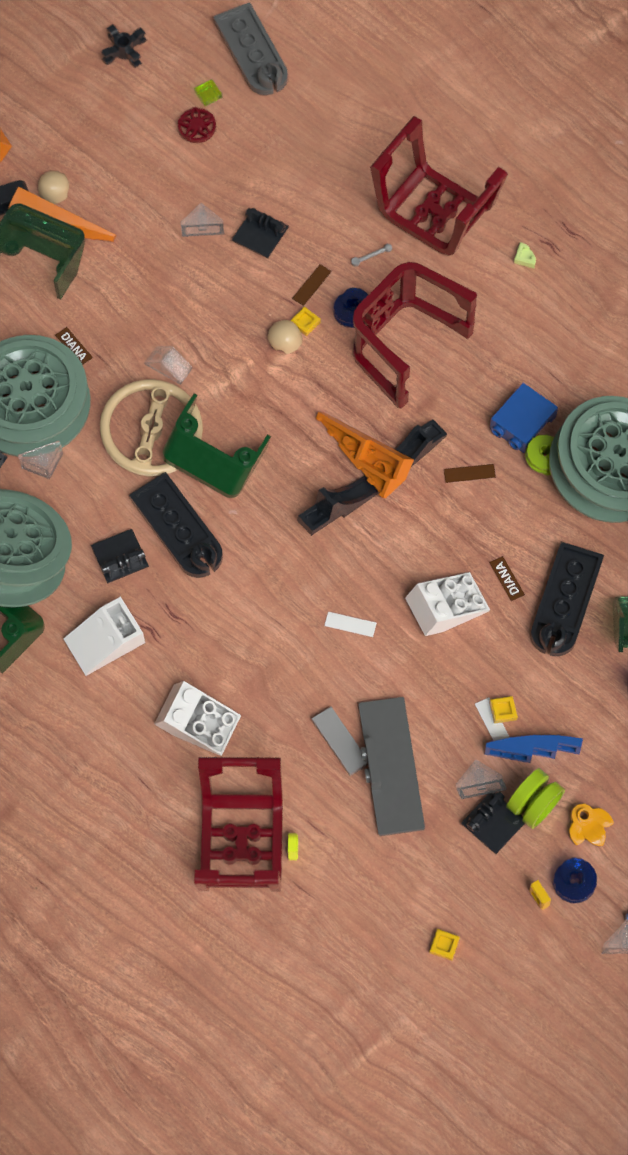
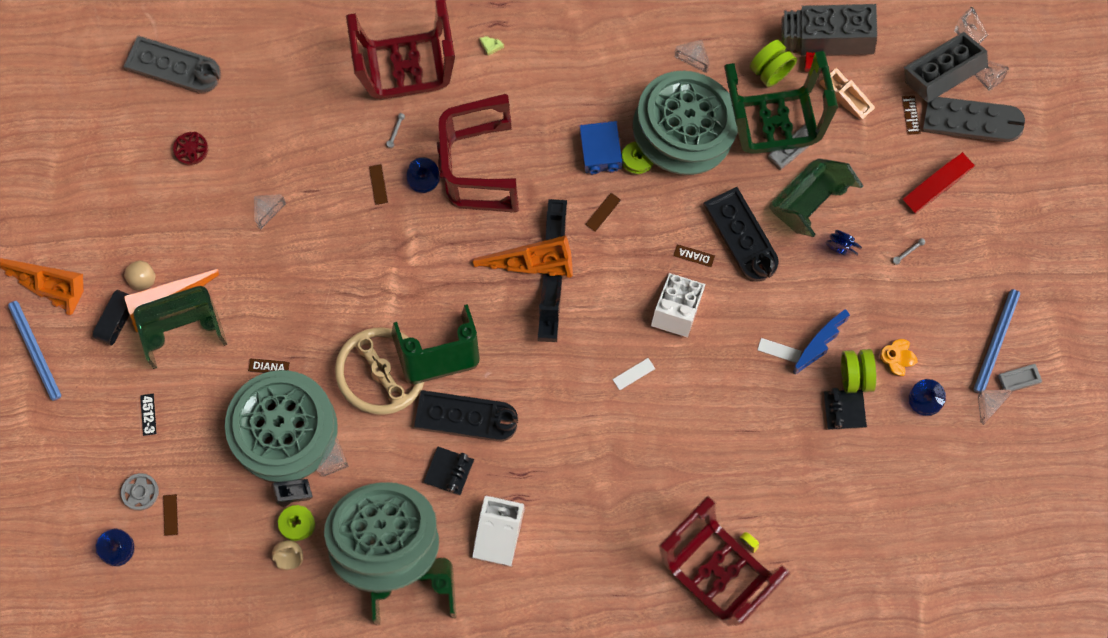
camera: 45 degrees left, 5 degrees up
(124, 46) = (79, 134): black pin -> none
(169, 363) = (344, 319): clear slope -> none
(197, 718) = (608, 523): white slope -> none
(208, 92) = (174, 120): clear neon green tile -> none
(260, 232) = (310, 181): black hinge -> none
(285, 336) = (399, 233): tan hair -> none
(306, 321) = (400, 211): yellow tile -> none
(339, 741) = (706, 450): light grey tile -> none
(391, 766) = (752, 435): dark grey bracket -> none
(444, 944) = (895, 510): yellow tile -> none
(479, 781) = (813, 392): clear slope -> none
(503, 709) = (778, 337): yellow tile -> none
(540, 895) = (917, 425): yellow tile -> none

